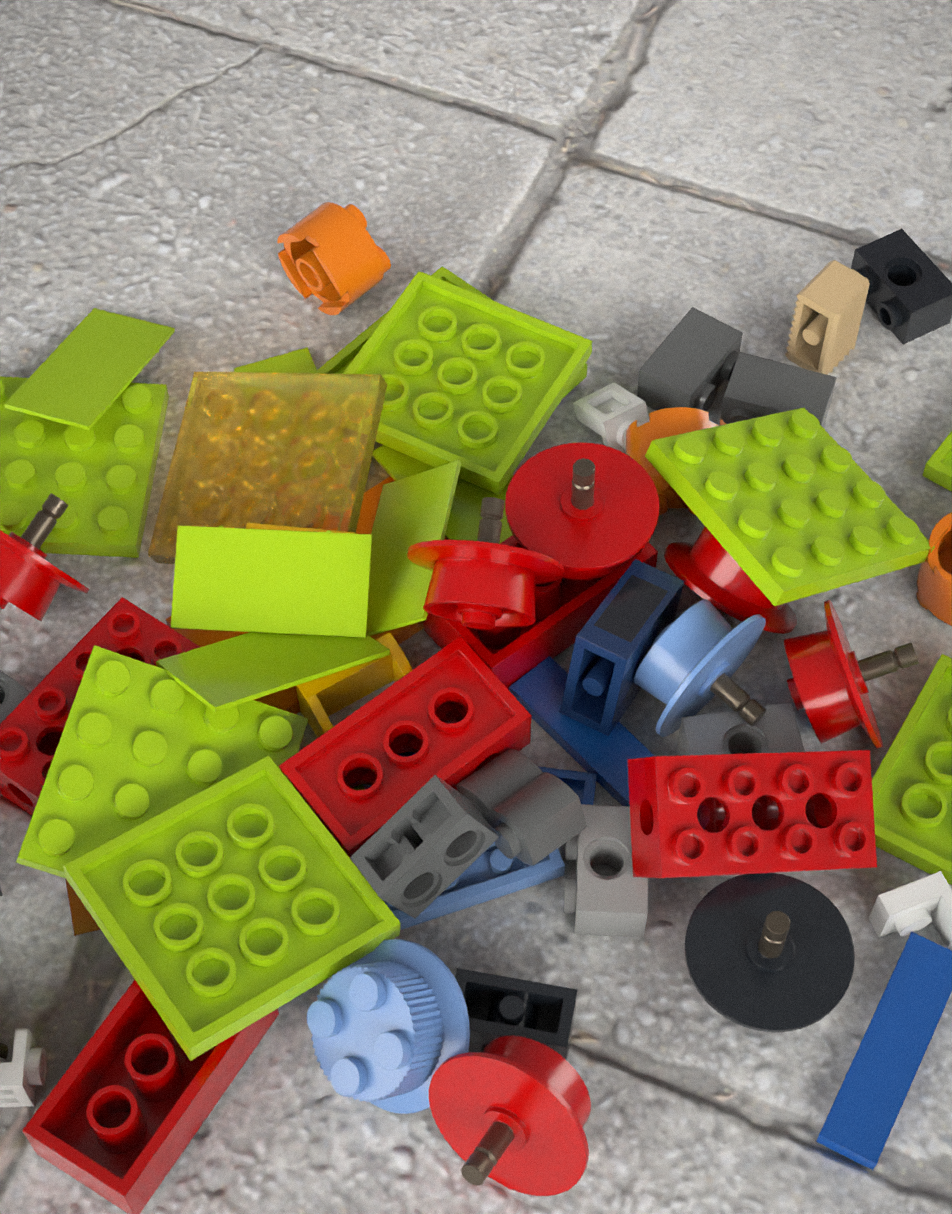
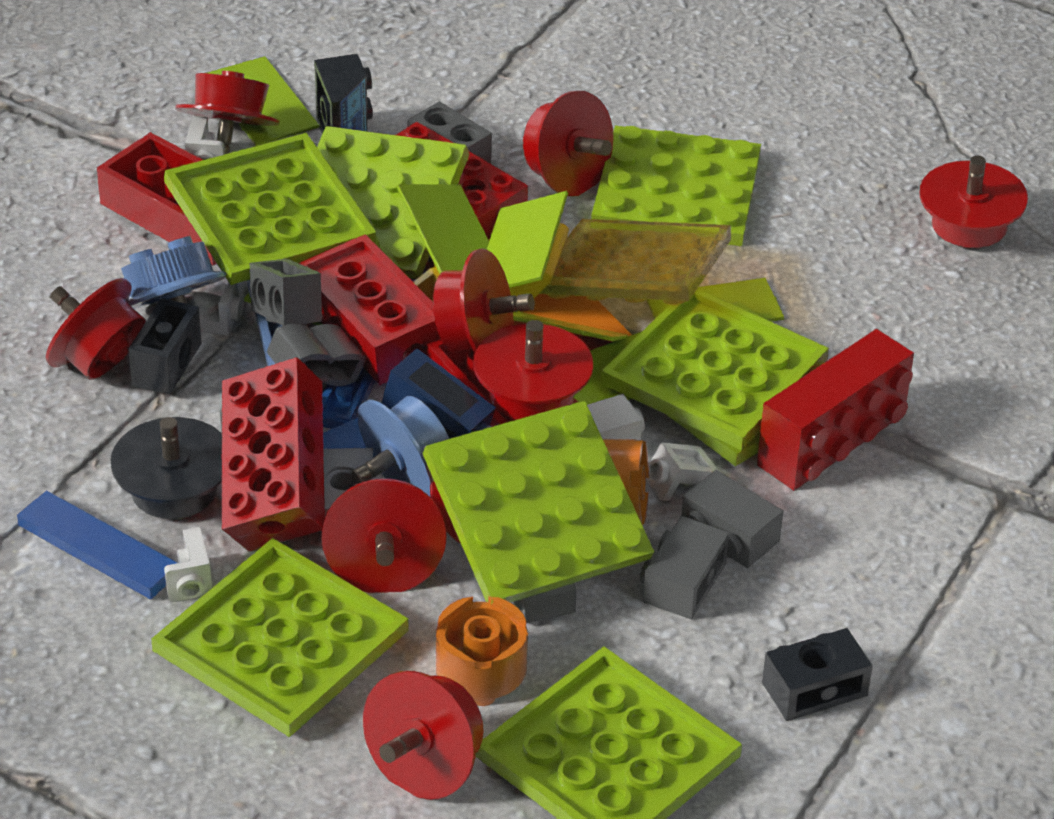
camera: 95 degrees right, 15 degrees down
(90, 369) = (760, 195): lime window -> none
(113, 156) = (972, 201): none -> red piece
(332, 256) = (852, 305): orange brick -> none
(514, 258) = (834, 409): none -> red brick
(827, 318) = (762, 594): tan brick -> none

